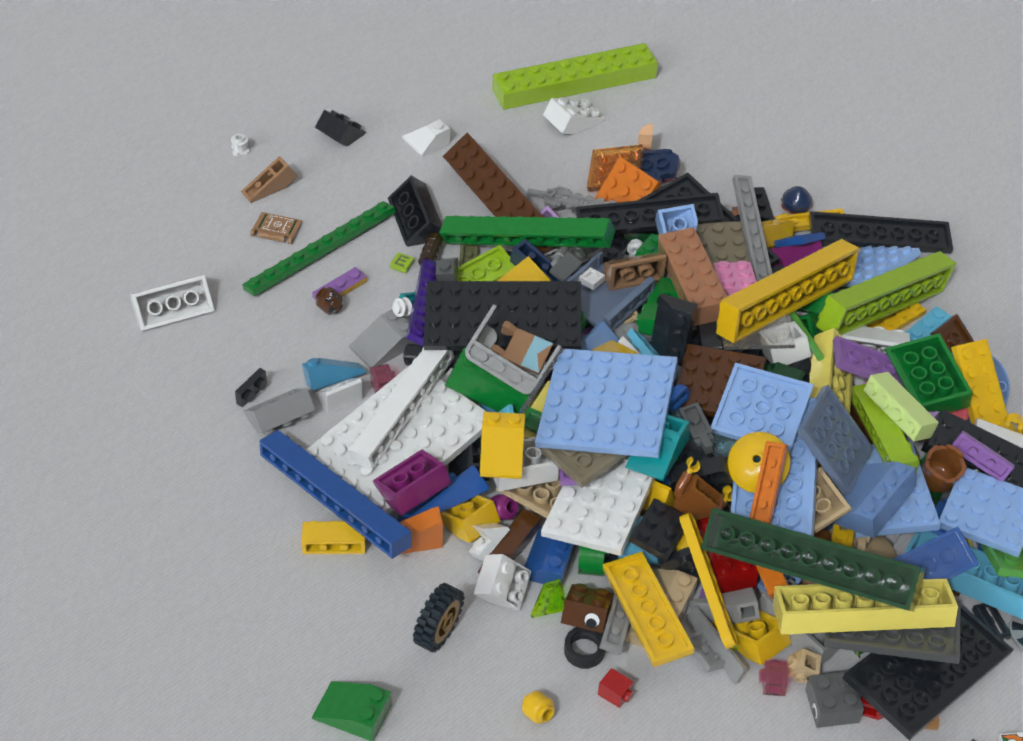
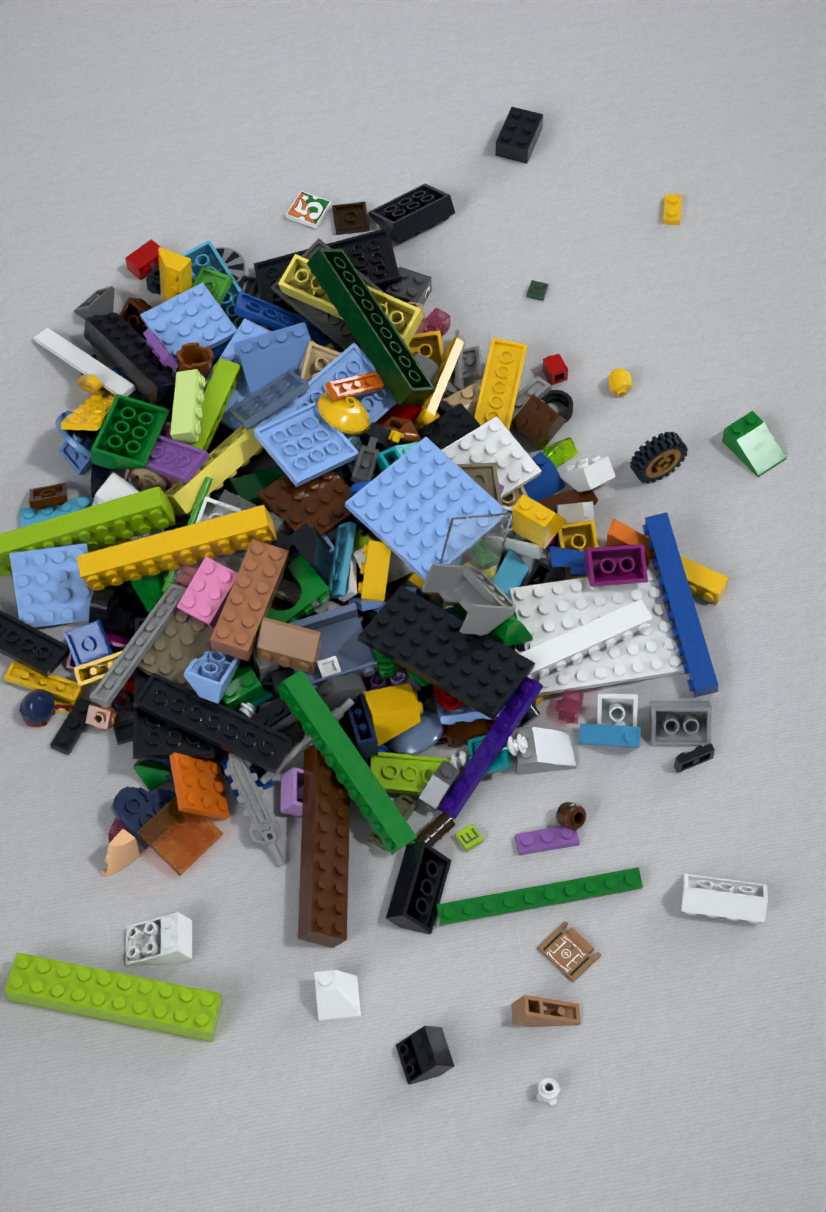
camera: 145 degrees left, 10 degrees up
(524, 348) = (454, 600): medium nougat flag -> none

